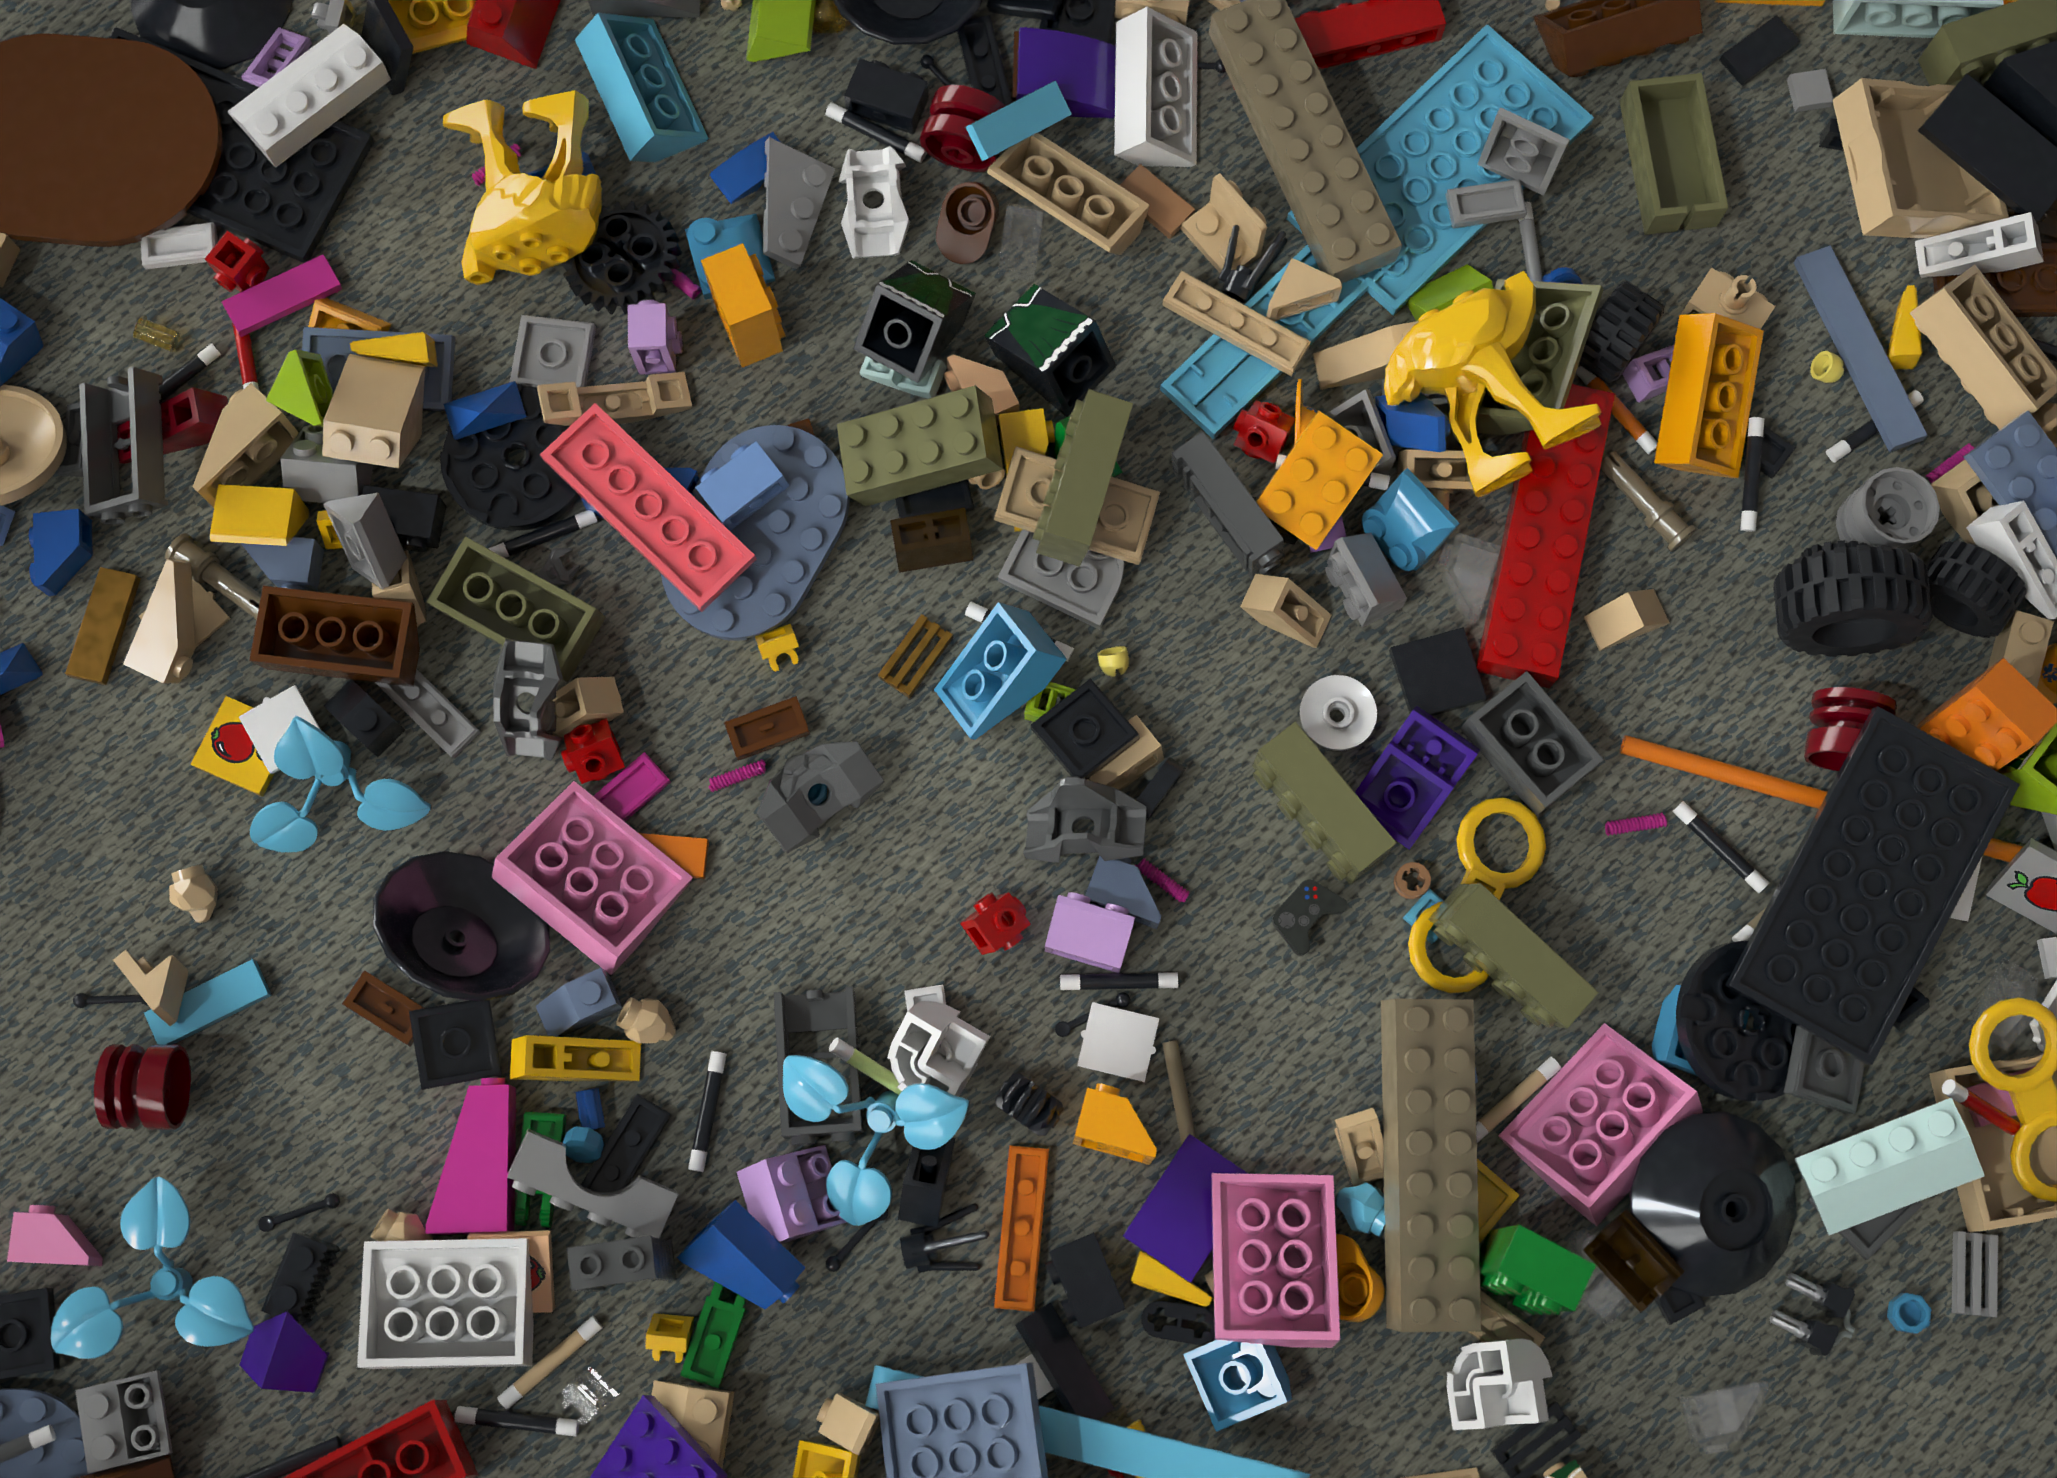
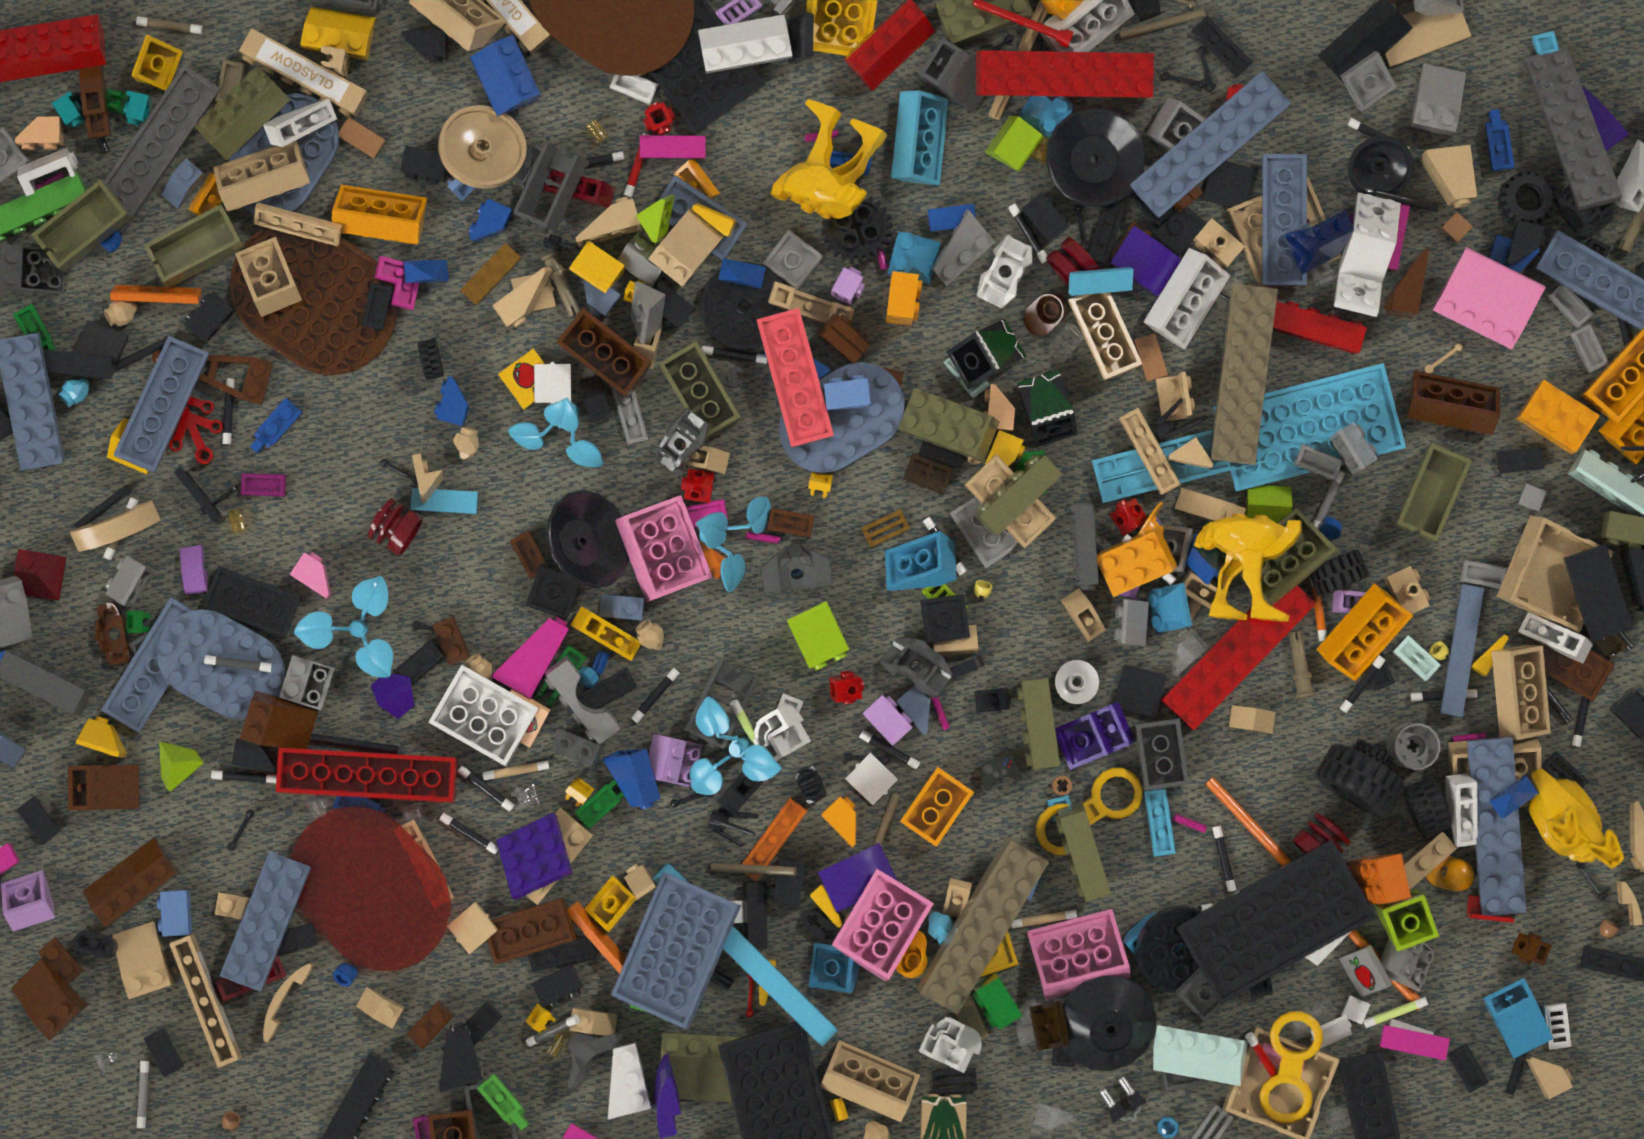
camera: 30 degrees right, 10 degrees up
(67, 797) = (430, 359): none -> black tyre
(142, 850) = (453, 406): none -> blue slope
(179, 522) = (555, 243): none -> black plate
(332, 1215) = (451, 640): none -> reddish brown plate
(644, 790) = (713, 533): none -> medium azure plant
(691, 415) = (844, 338): none -> reddish brown brick
(906, 868) = (818, 636): none -> lime slope
(1018, 1292) = (753, 869): none -> dark tan bar
(1229, 812) = (992, 700): none -> black bracket
(1244, 1022) = (936, 806): none -> light orange brick
(1591, 849) = (1159, 822): none -> medium azure tile
(1803, 395) = (1416, 658): none -> light aqua plate
(1815, 229) = (1482, 574): none -> light grey tile

